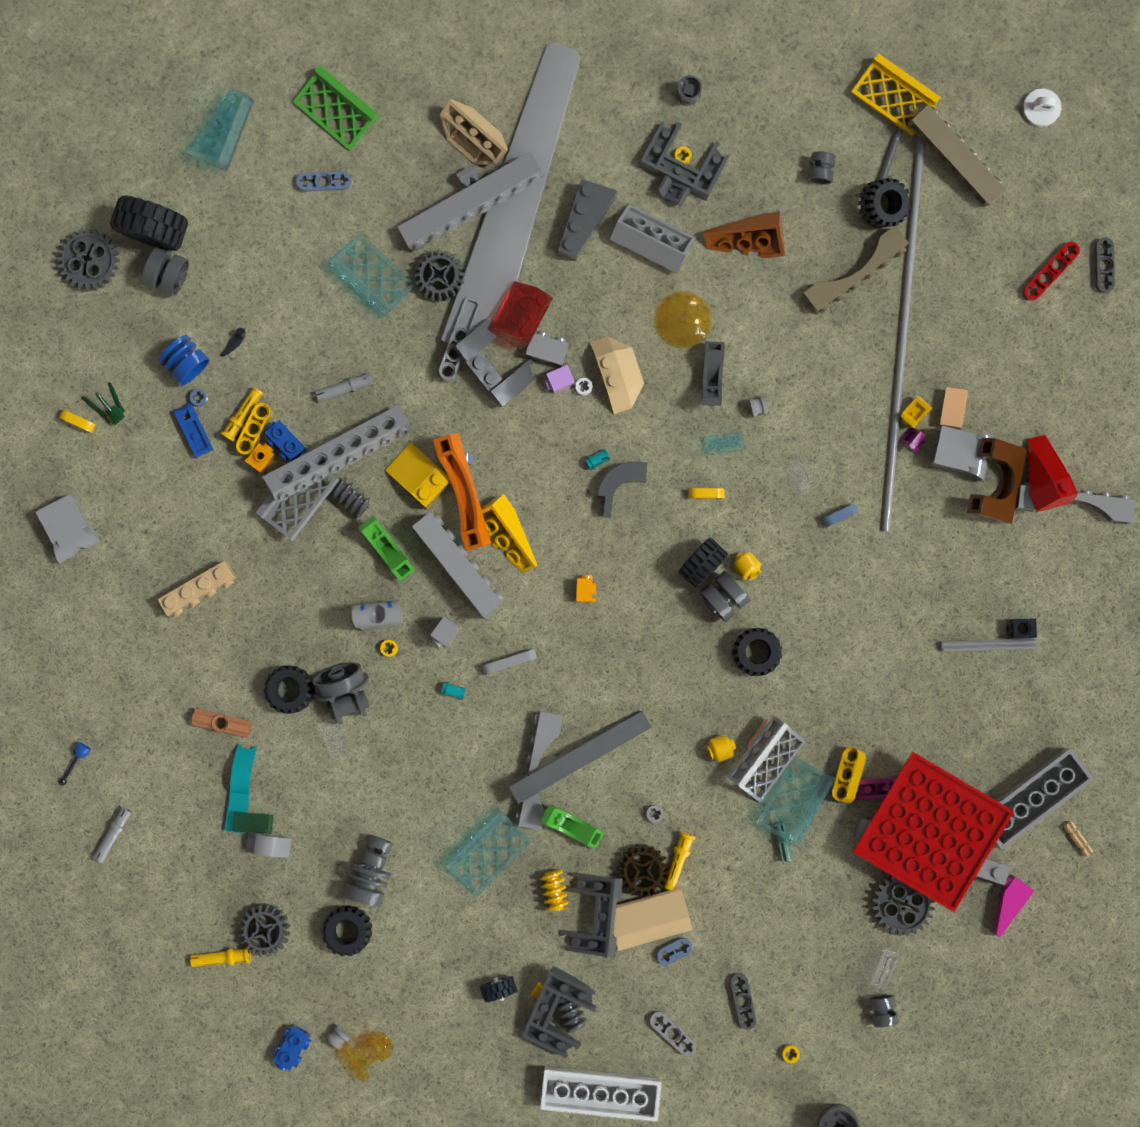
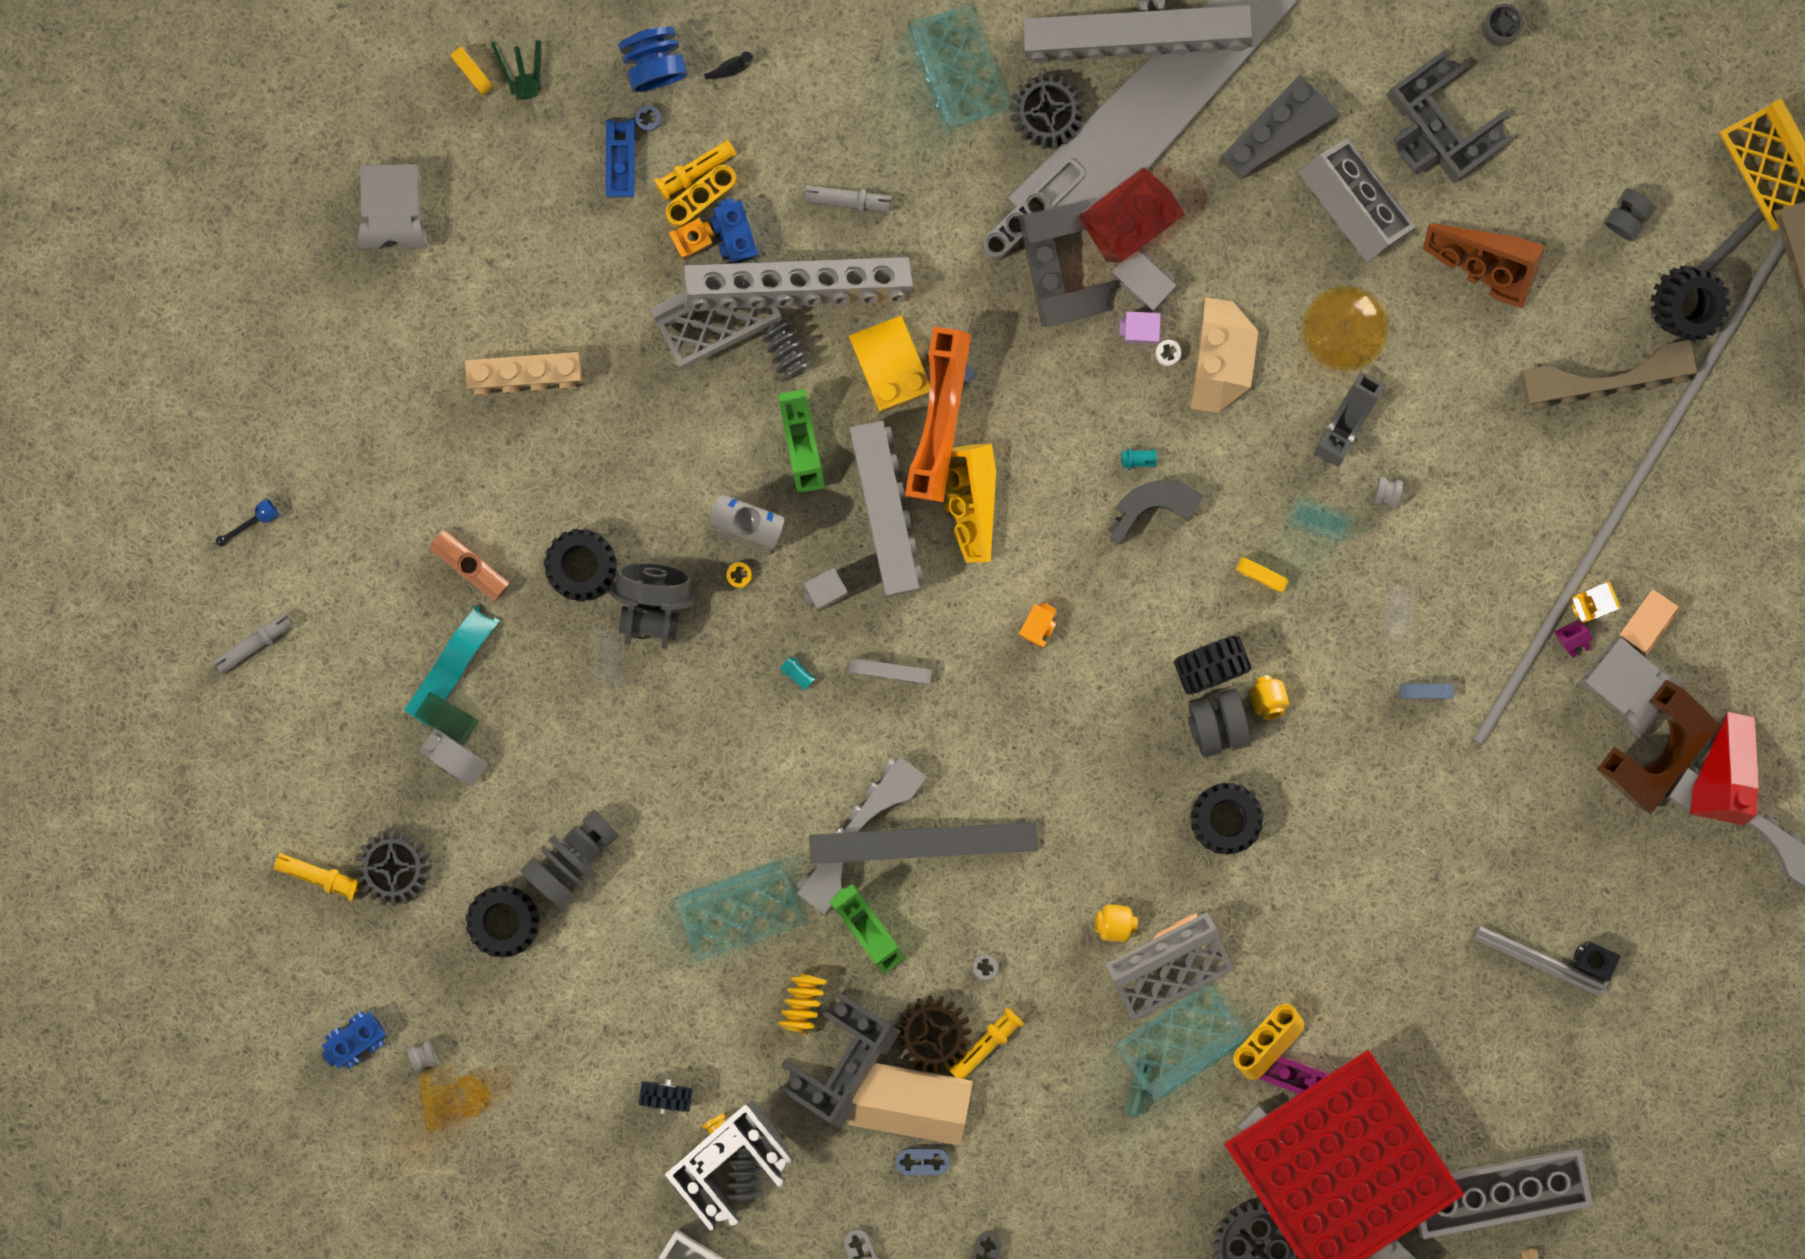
camera: 20 degrees right, 0 degrees up
(687, 151) = (1447, 100): yellow bush -> none

